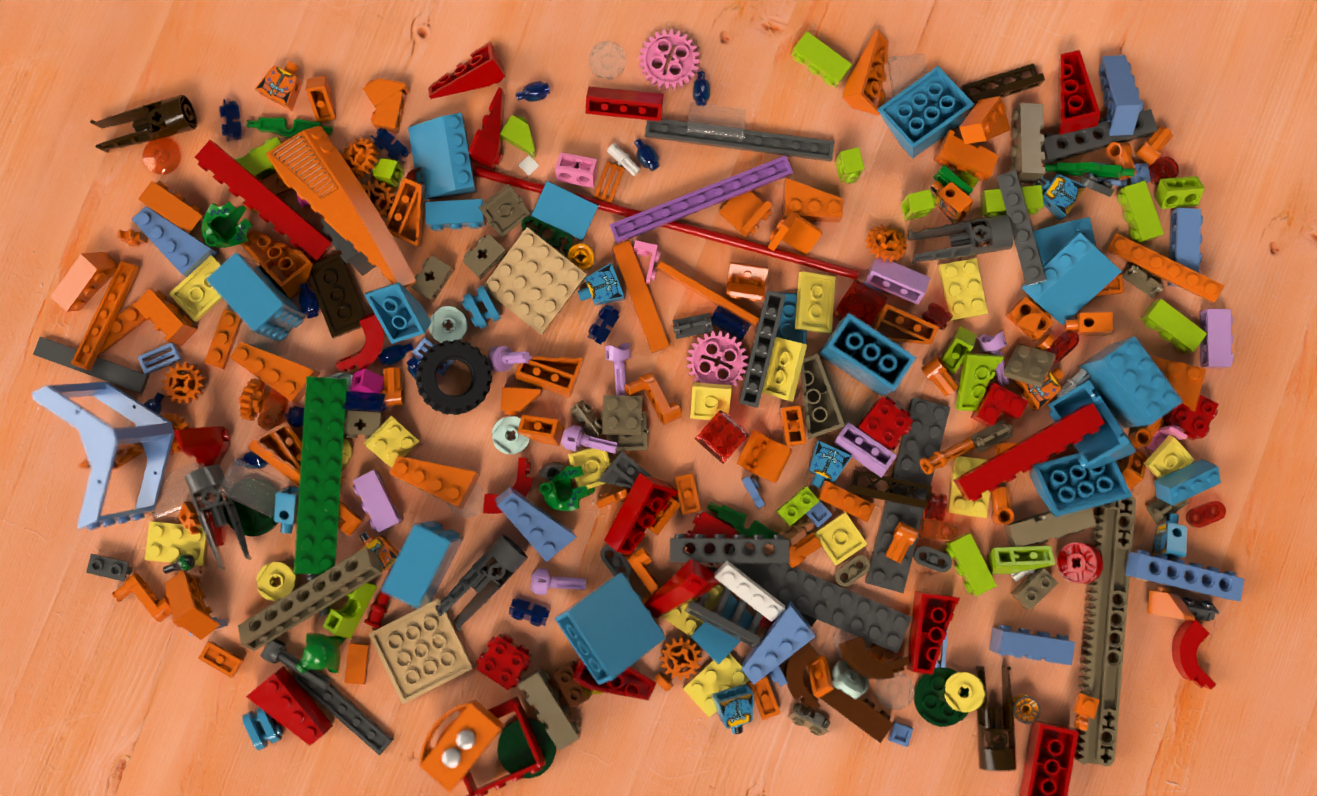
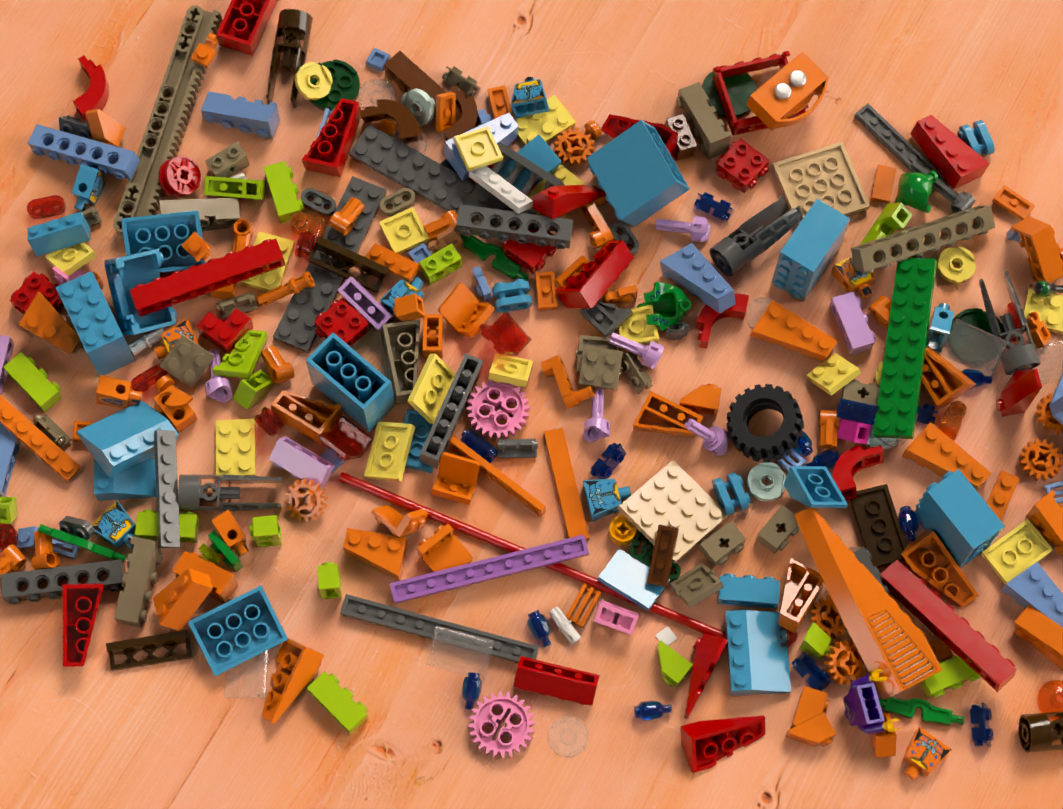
camera: 170 degrees left, 15 degrees down
(219, 226) = (996, 605): green piece -> none
(252, 399) = (970, 430): orange gear -> none
(336, 112) = (863, 705): none -> dark purple torso
(378, 608) = (857, 229): red pin -> none
(500, 437) = (713, 357): light aqua plate -> none
(539, 229) = (662, 555): none -> reddish brown tile
(541, 429) = (683, 366): orange slope -> none
(644, 249) = (552, 529): bright pink bracket -> none
(731, 487) = (511, 296): none -> dark azure brick
(779, 630) = (478, 148): none -> light yellow plate
(821, 445) = (409, 307): none -> orange brick
(1027, 716) = (253, 60): light orange wheel -> none
(1046, 479) = (197, 247): none -> orange bracket
(1119, 94) = (31, 615): medium blue wedge -> none
(1133, 468) = (109, 248): orange slope -> none
(1140, 212) = (38, 496): lime brick -> none

